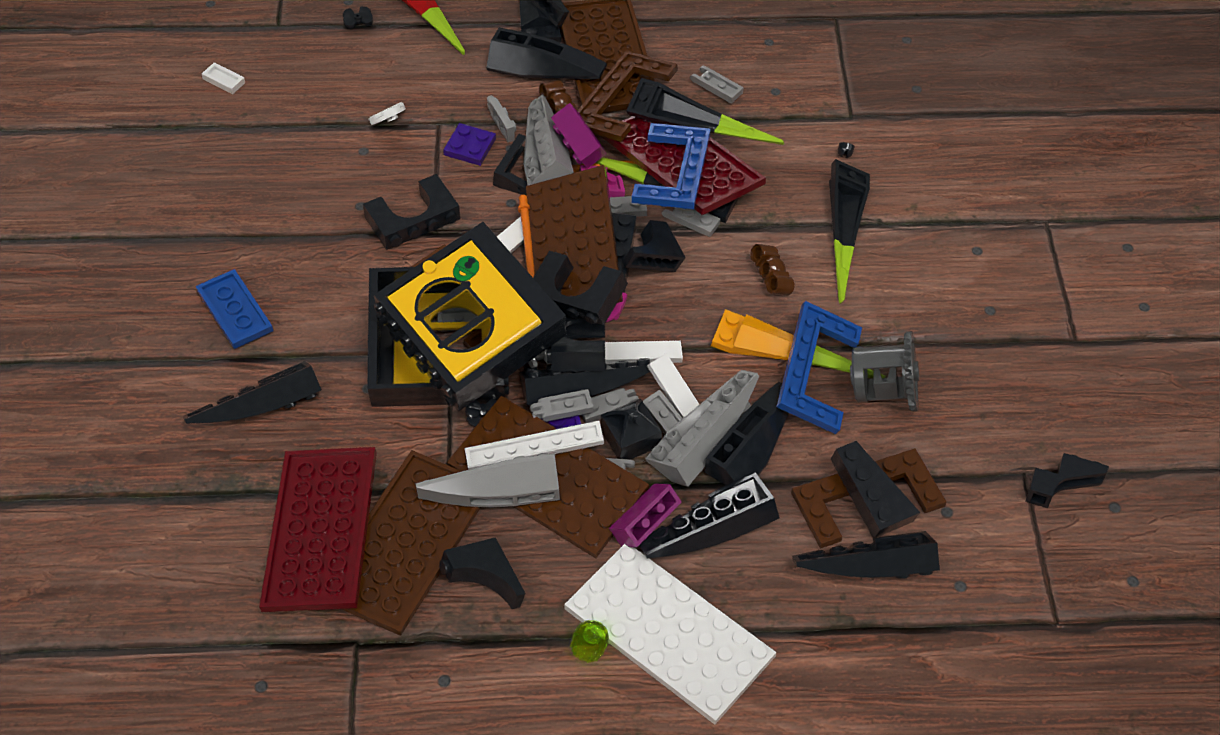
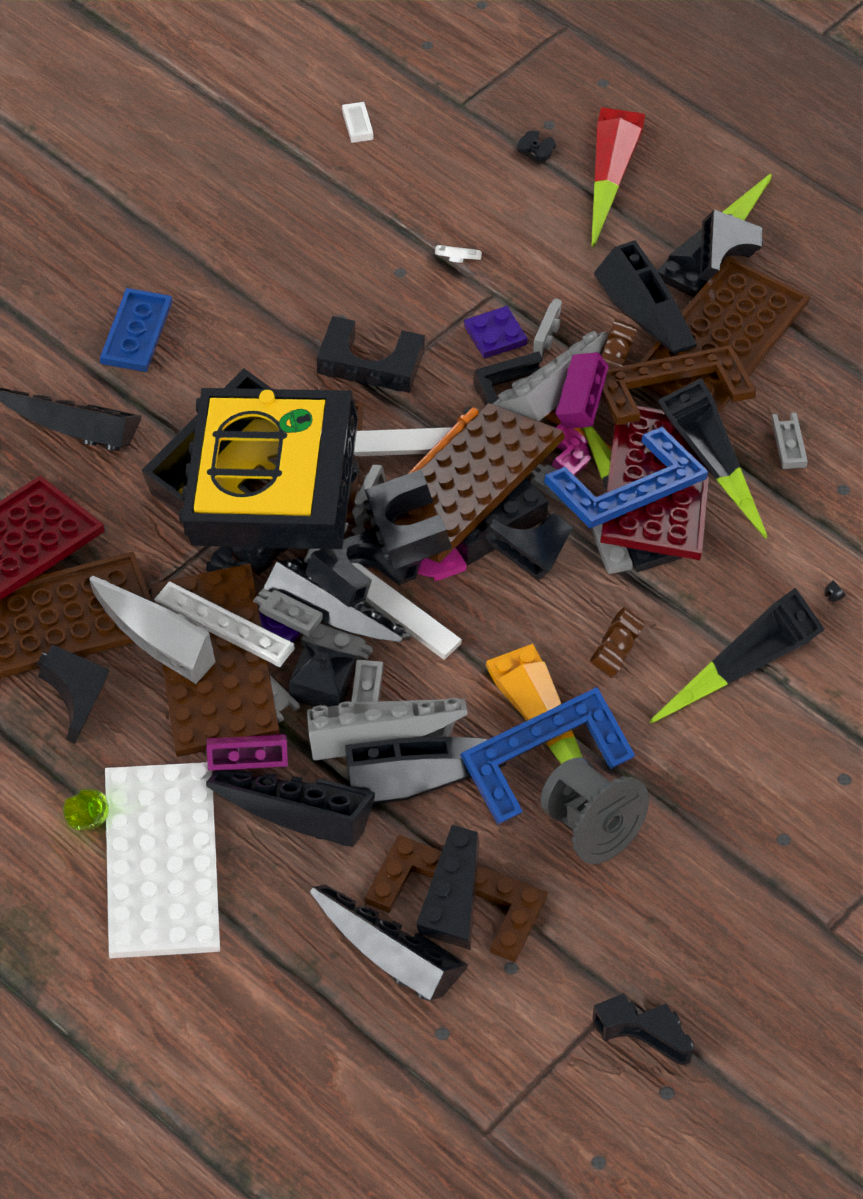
camera: 45 degrees right, 0 degrees up
(673, 385) = (399, 666): white tile -> none

